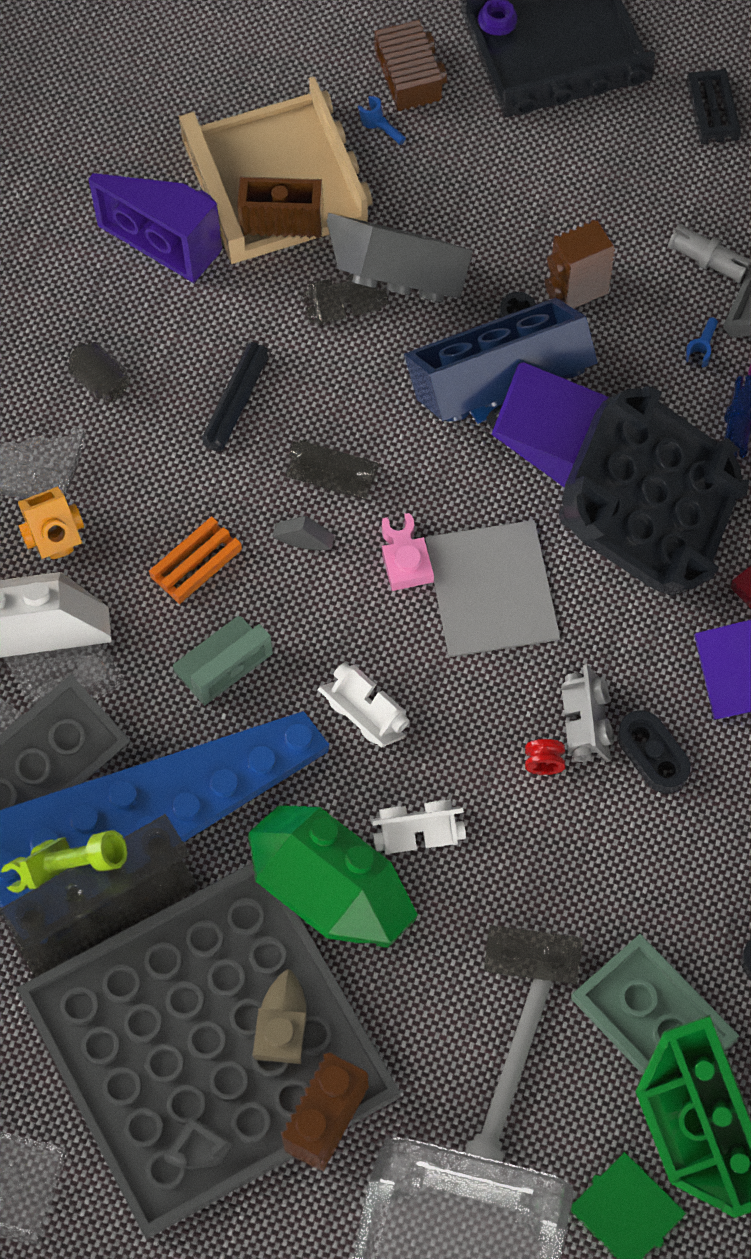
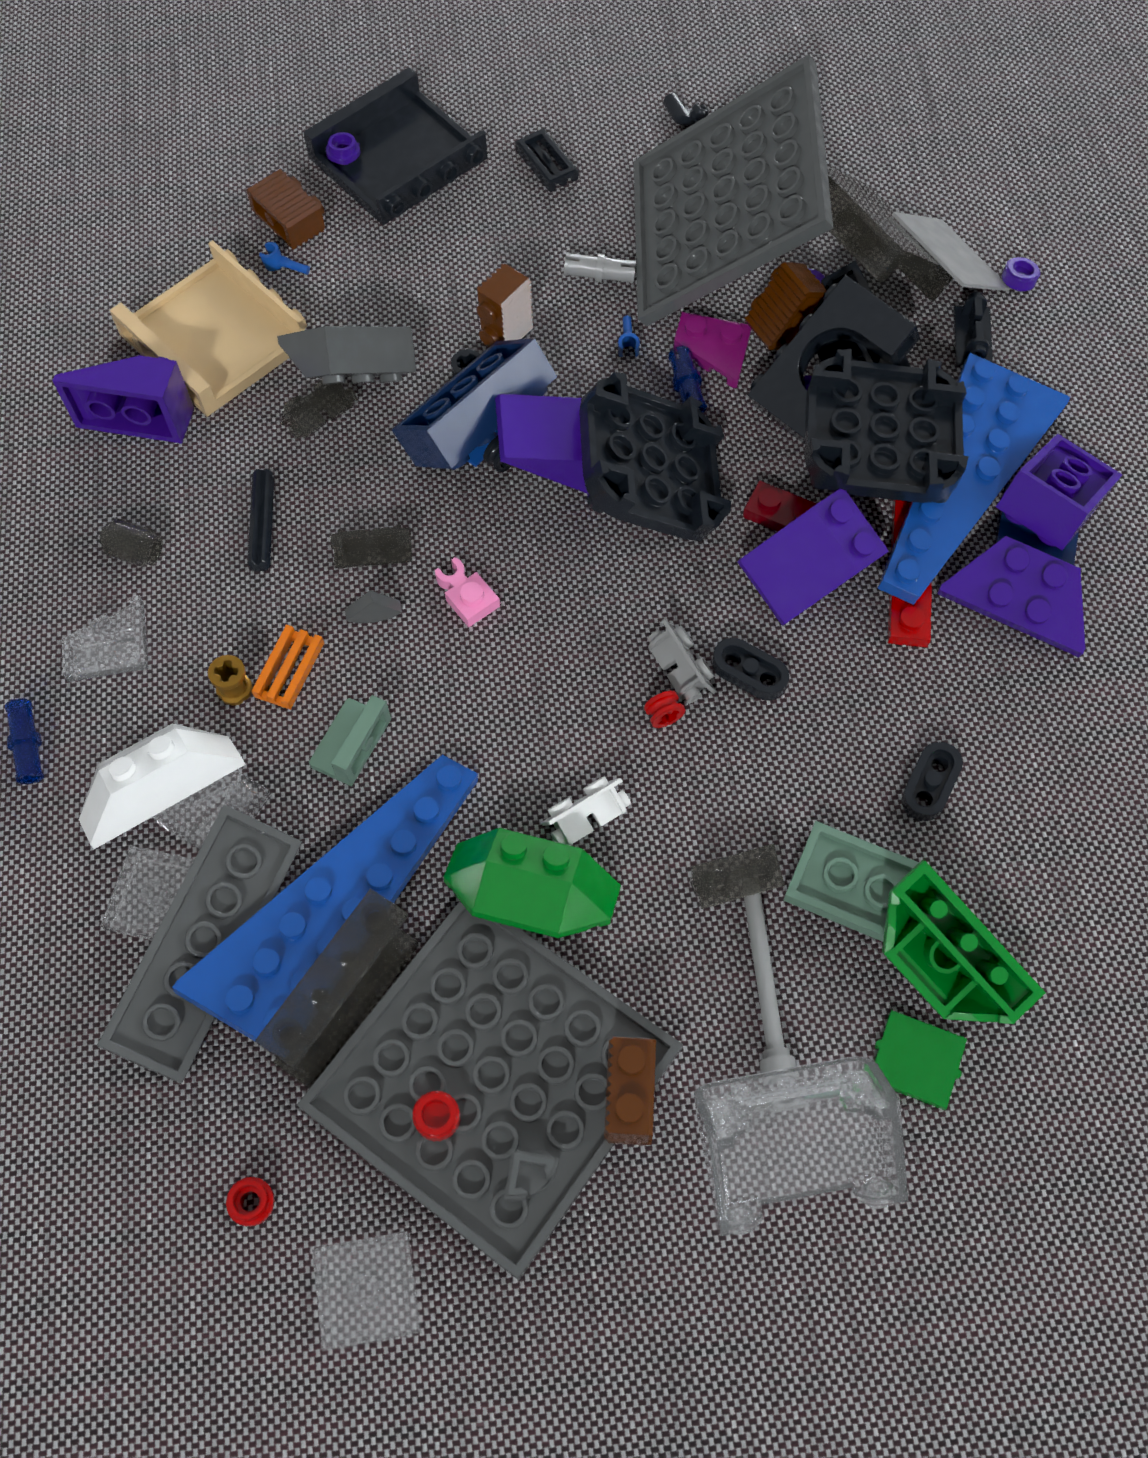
camera: 25 degrees left, 0 degrees up
(50, 524) = (145, 684): light orange brick -> none
(52, 857) = (282, 972): lime bar -> none
(133, 551) = (230, 679): none -> pearl gold bush
(137, 1054) = (436, 1115): none -> red tile
(281, 206) = (232, 349): reddish brown brick -> none
(281, 1022) = (551, 1028): dark tan plate -> none
(379, 720) = (476, 725): white hinge -> none
(492, 588) = (552, 593): light grey piece -> none

